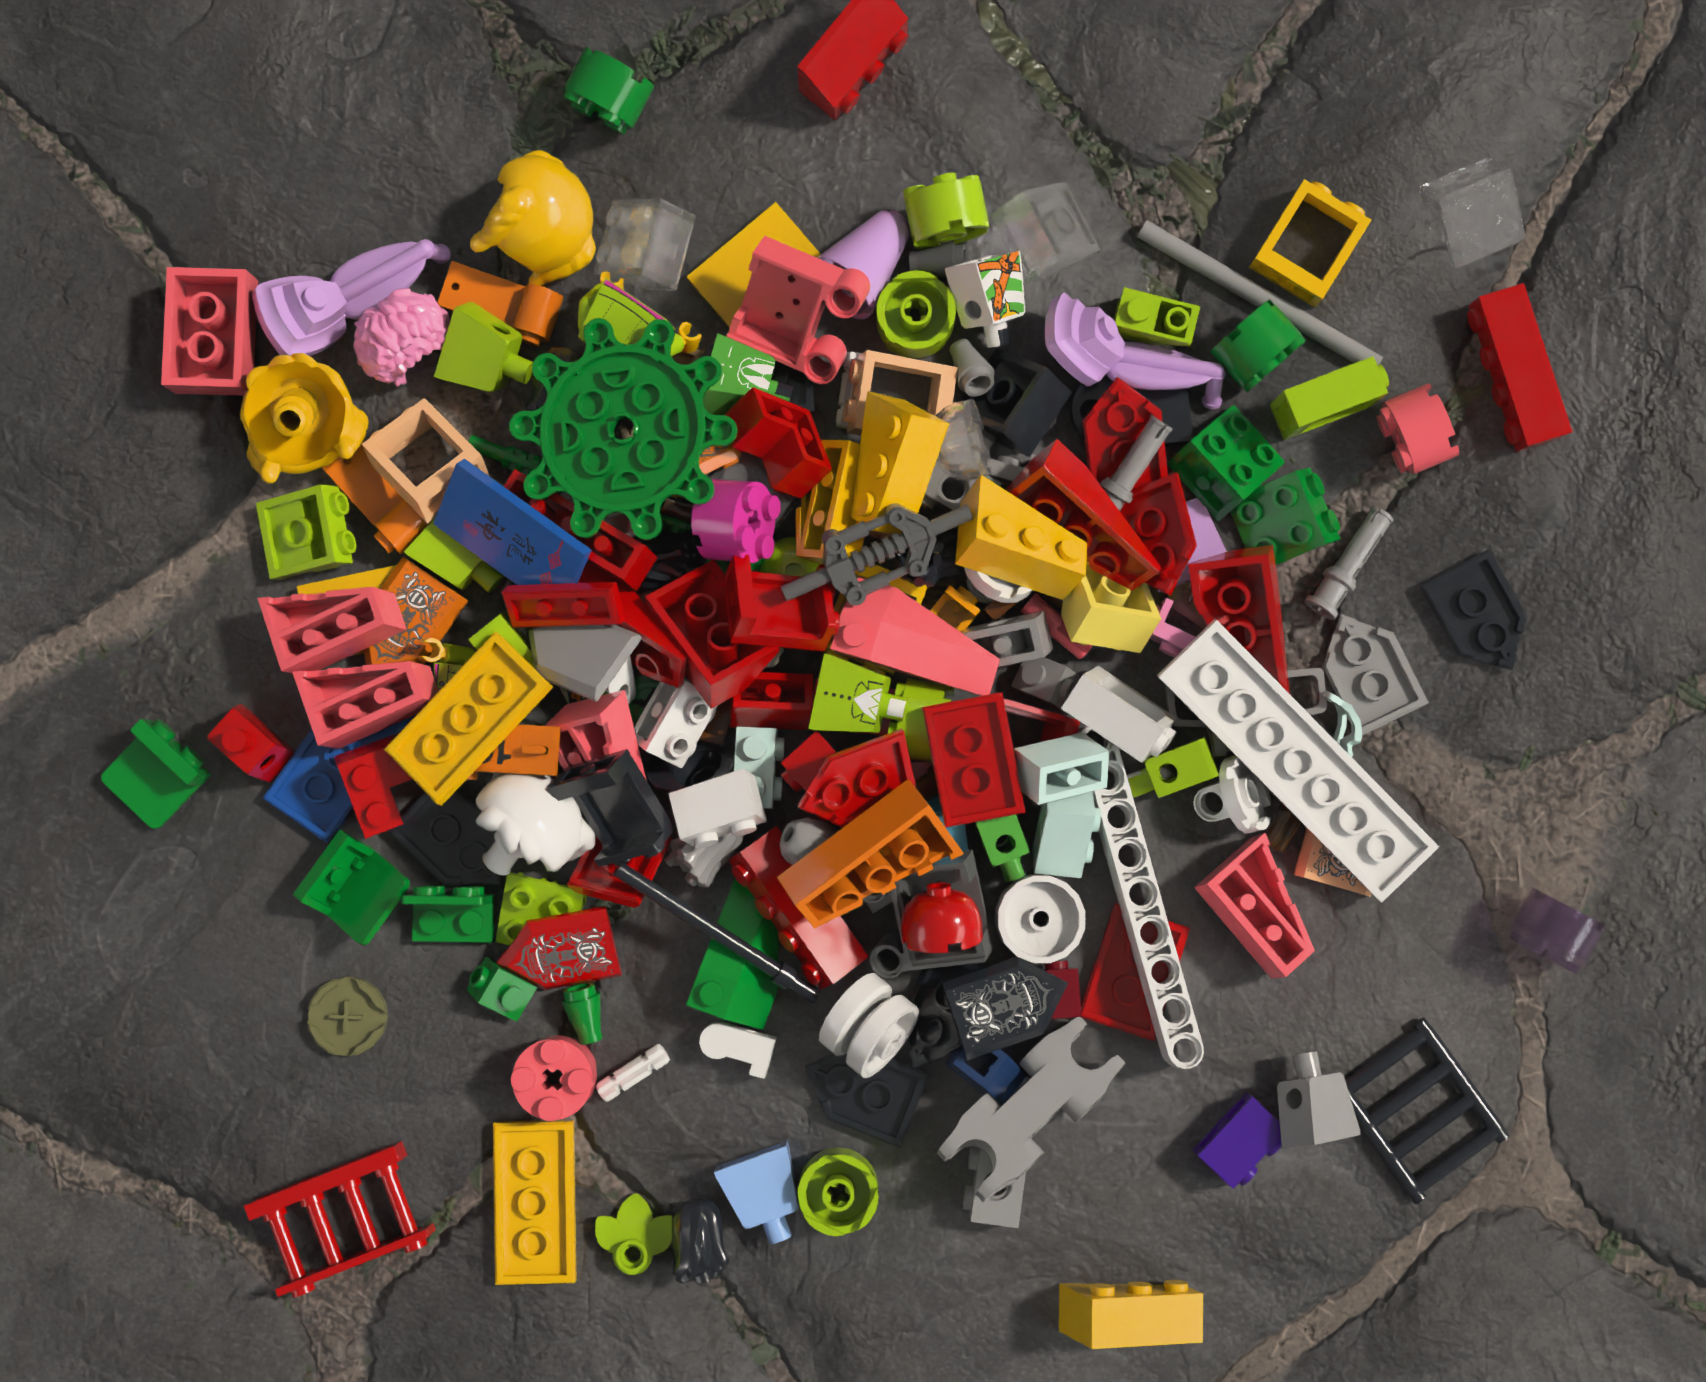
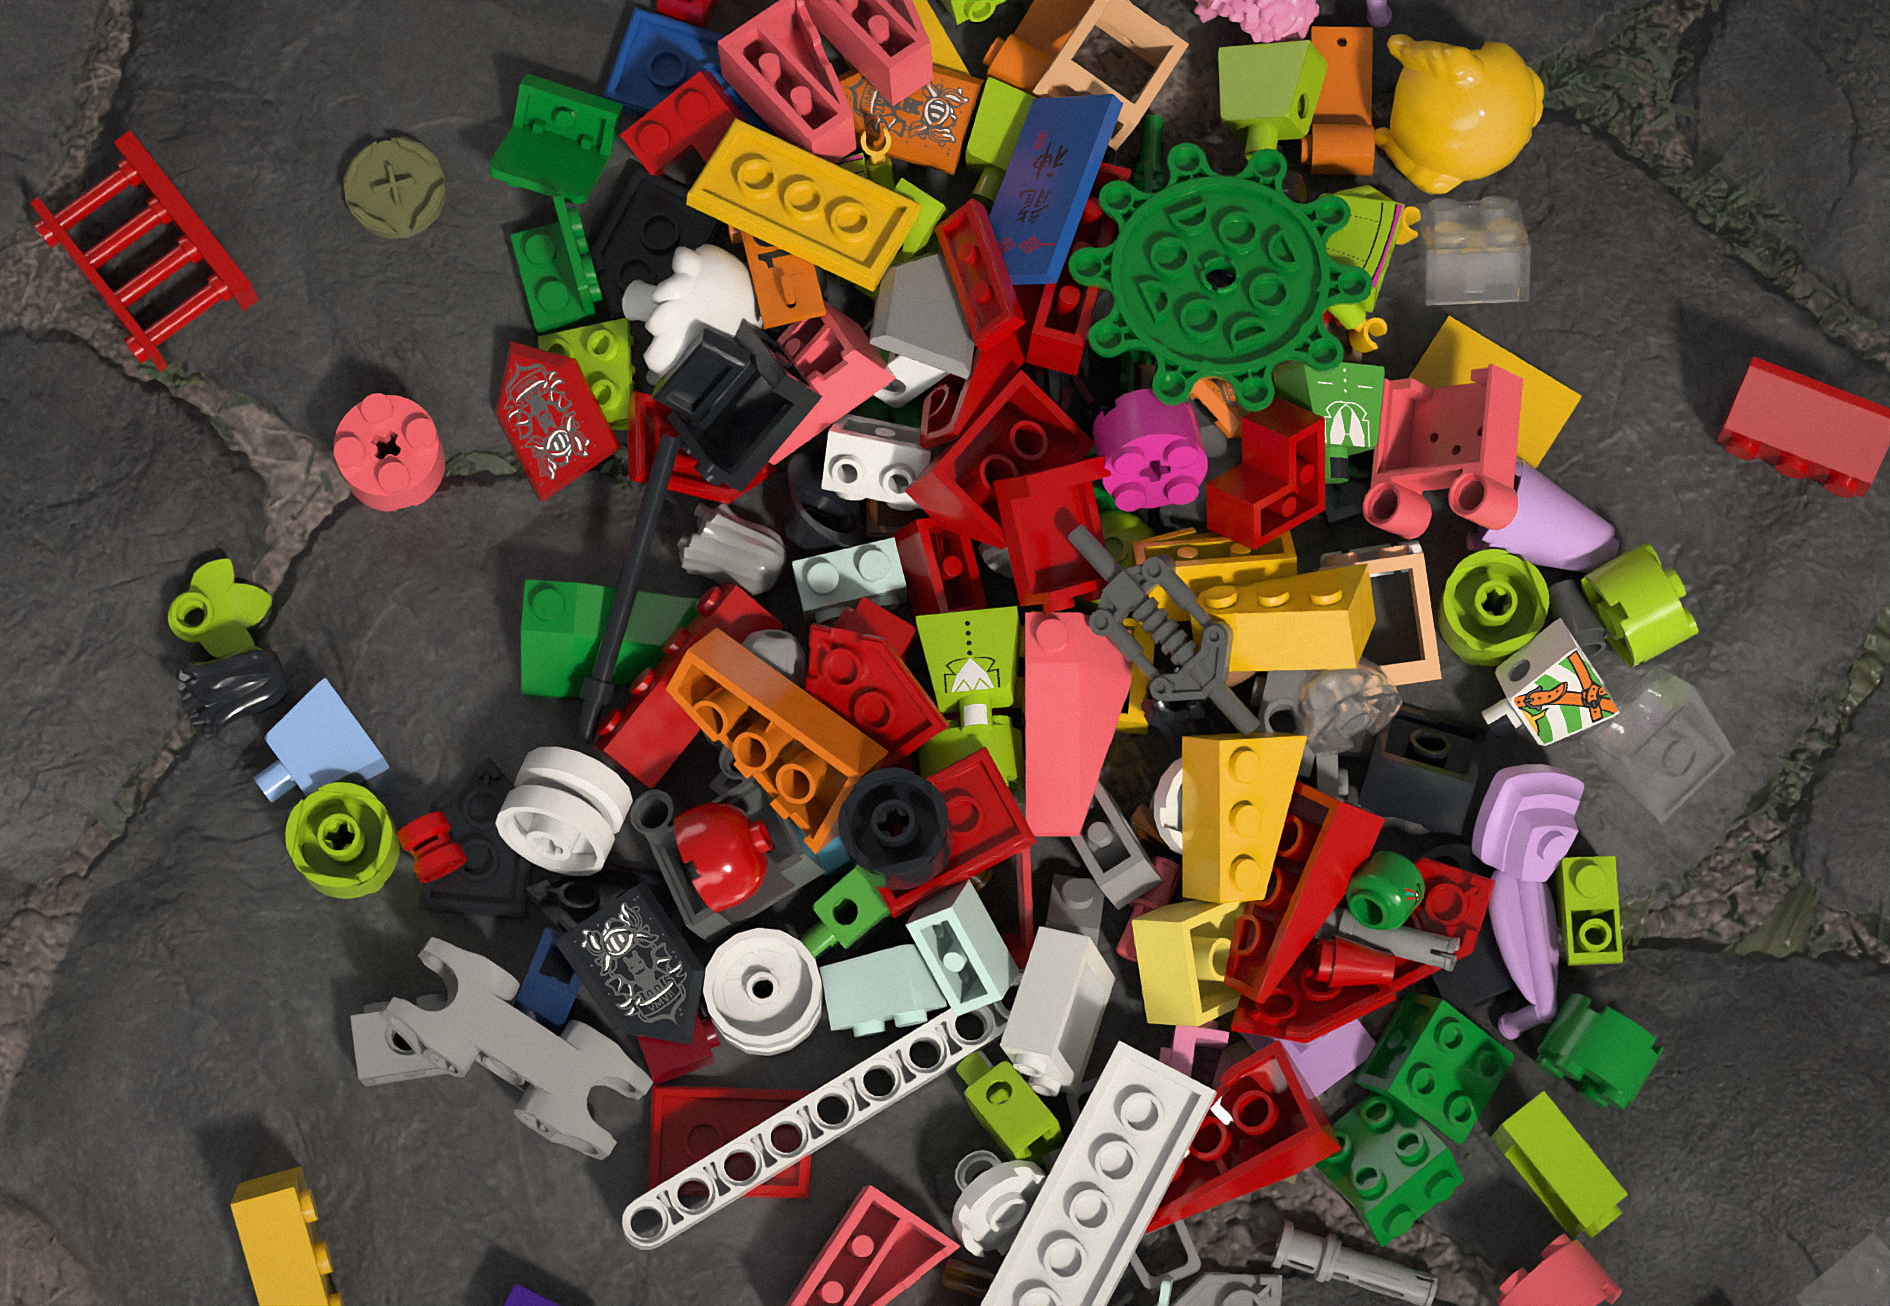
camera: 75 degrees right, 10 degrees down
(500, 989) = (479, 357): green bracket -> none
(534, 1202) = (227, 479): yellow tile -> none
(578, 832) = (701, 374): none -> black tile
(584, 1011) = (483, 465): green cone -> none
(608, 89) = (1647, 145): green brick -> none
(632, 1072) = (421, 549): white axle -> none
(718, 808) = (782, 537): white brick -> none
(739, 1043) = (495, 668): white leg -> none
(872, 1127) = (431, 847): none -> red wheel
(954, 806) = (867, 821): none -> black brick
(956, 607) = (1129, 771): light orange bracket -> none
(974, 373) = (1445, 700): light grey cone -> none
(1105, 455) = (1385, 891): none -> green head
(1147, 496) = (1349, 963): none -> red cone
(1254, 293) = (1671, 1037): light grey piece -> none
(1289, 275) = (1706, 1077): yellow window -> none

